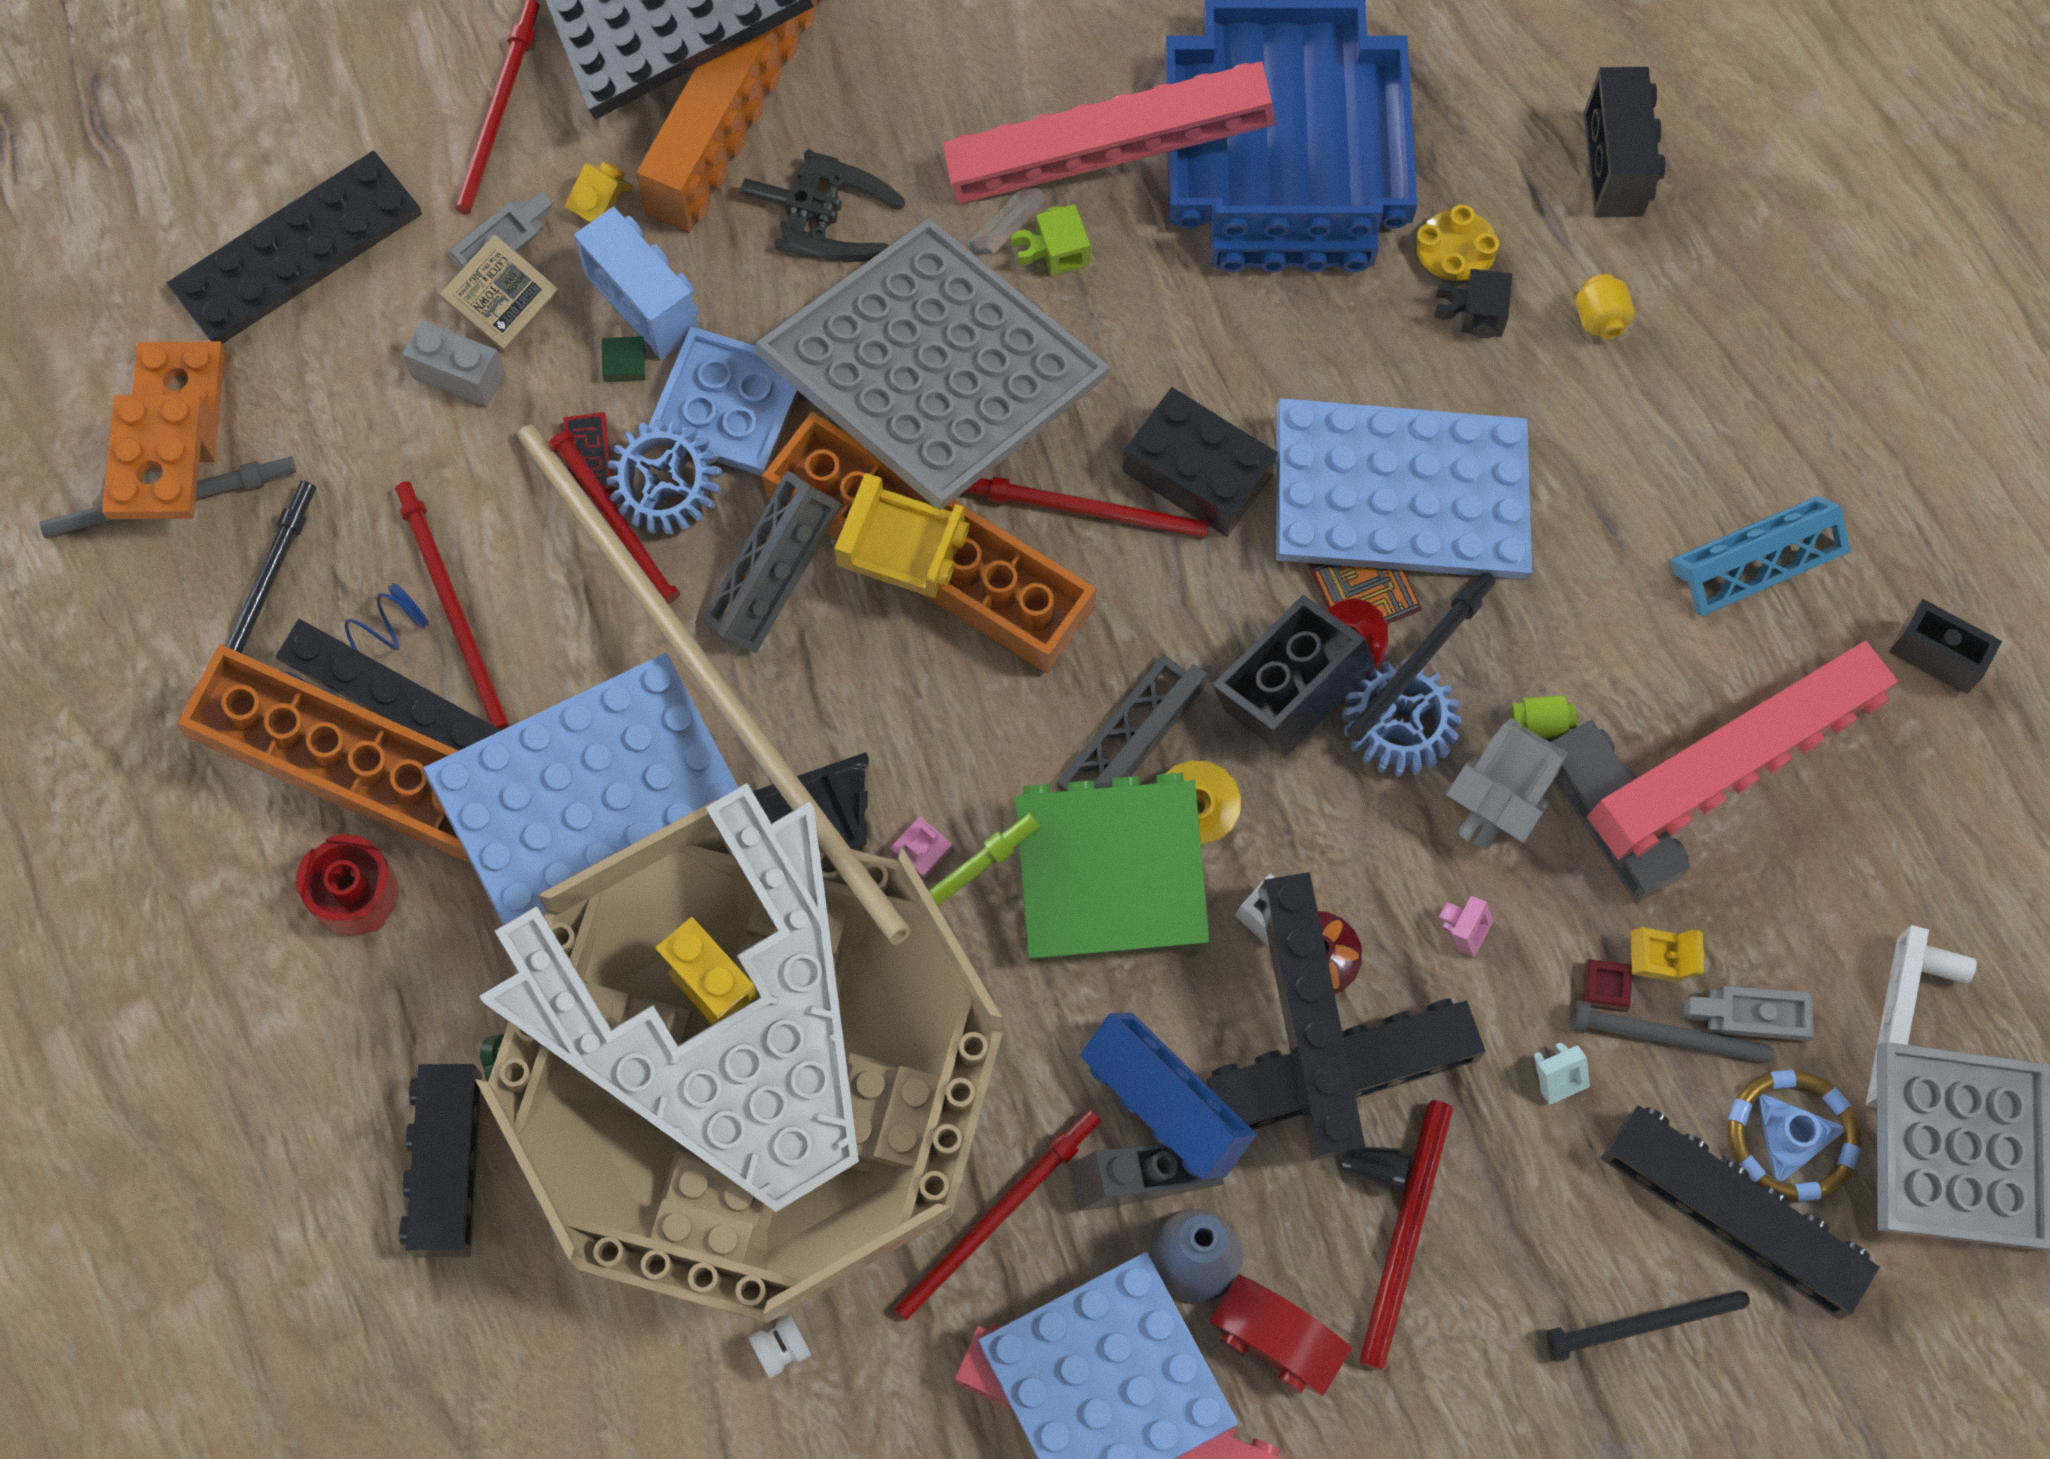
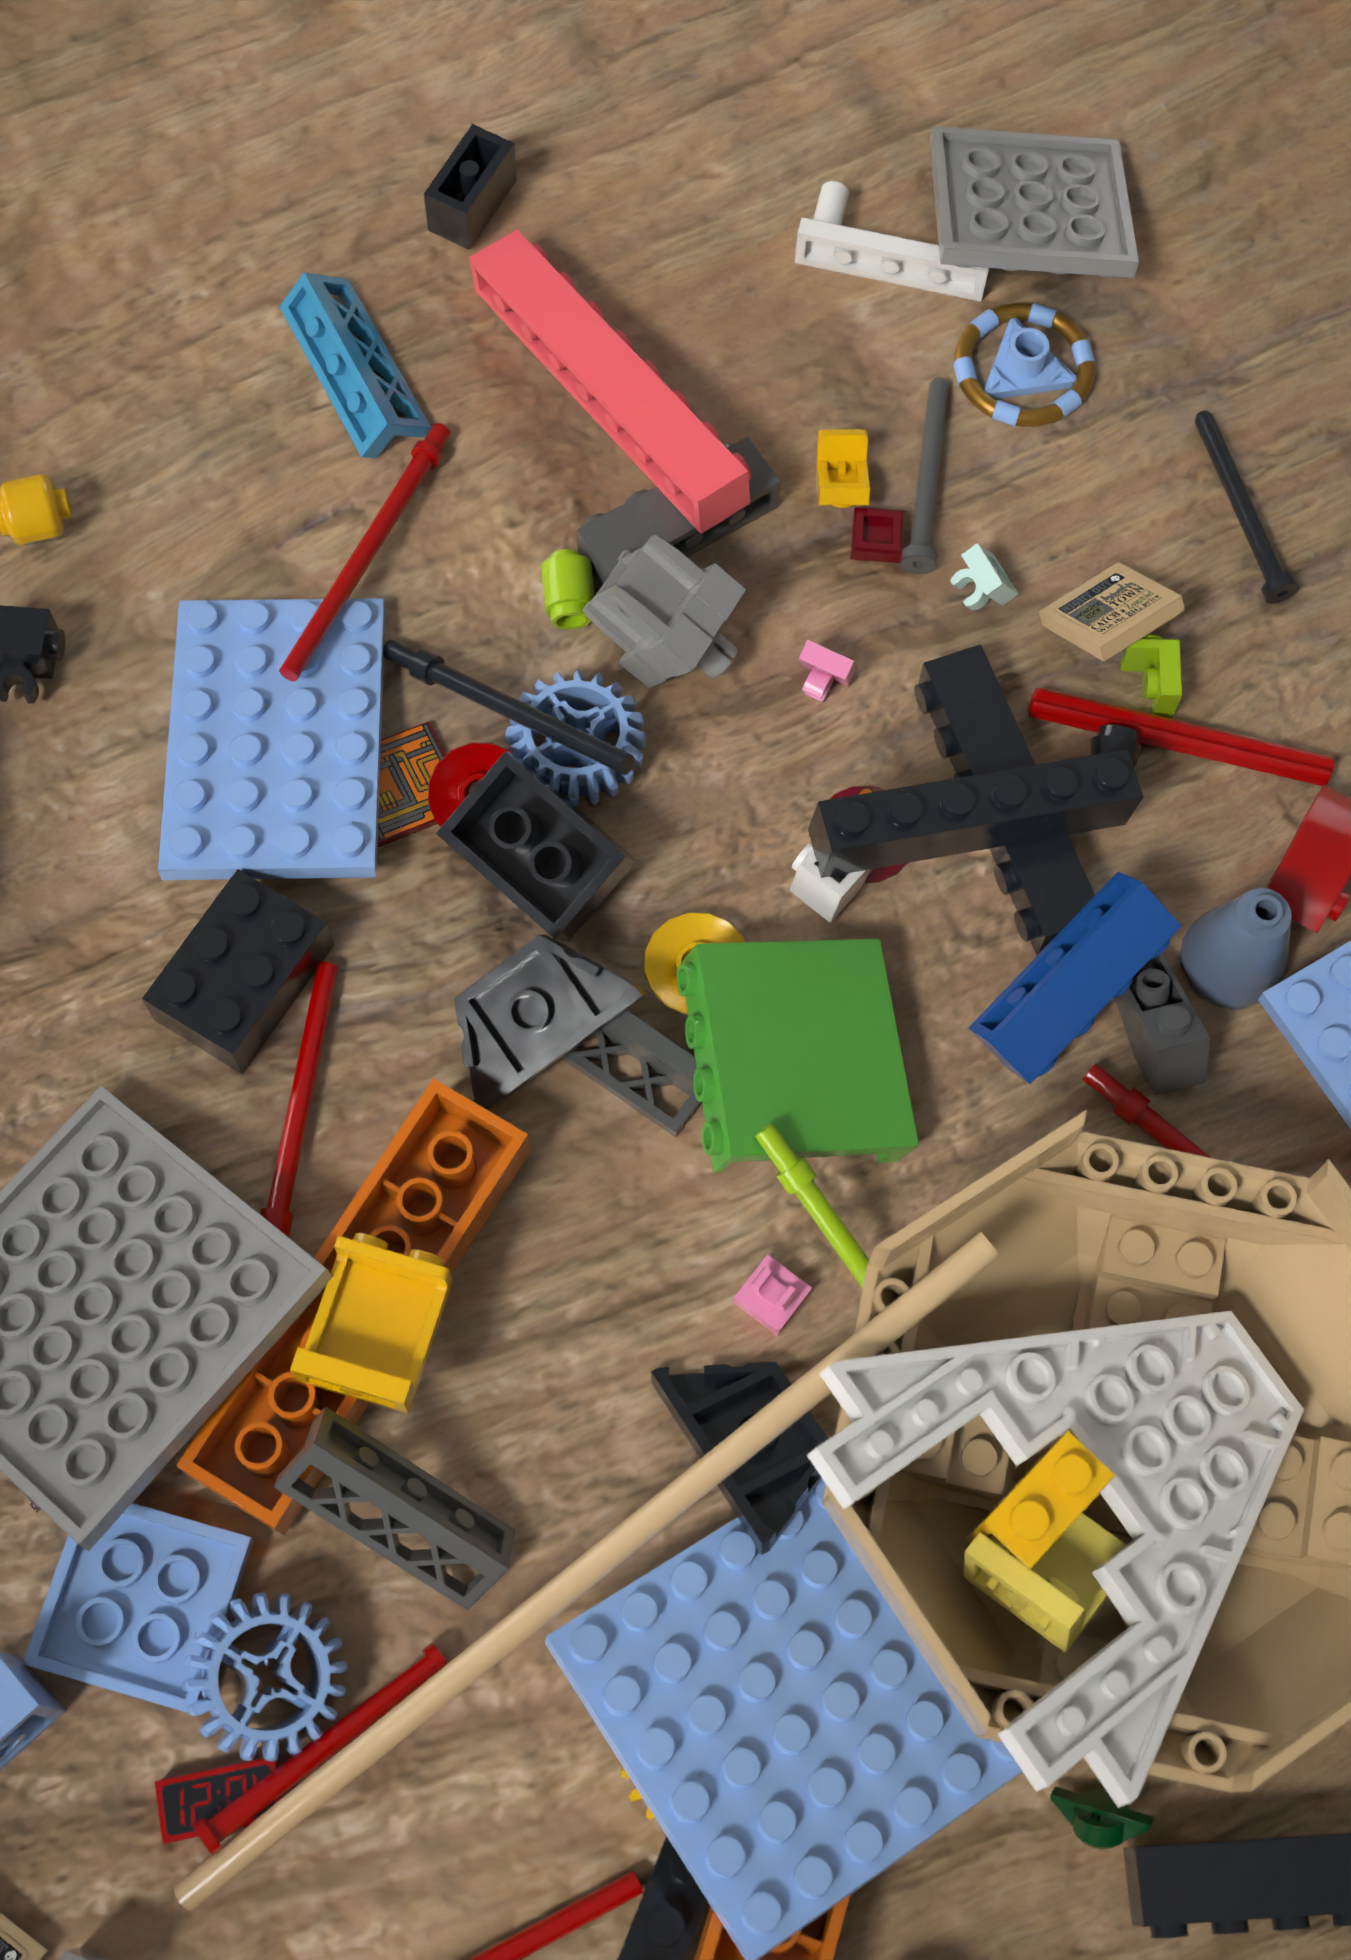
camera: 95 degrees left, 0 degrees up
(623, 359) = (66, 1764): dark green tile -> none
(646, 980) = (1058, 1591): none -> light yellow bracket
(1150, 668) = (534, 1014): none -> wing
(1458, 1219) = (1162, 671): none -> lime bracket
(1524, 1176) = (1111, 611): none -> tan tile
(1671, 609) = (425, 456): none -> red bar
(1741, 1212) = (1116, 414): black brick -> none
(1754, 1012) = (898, 392): light grey hinge -> none

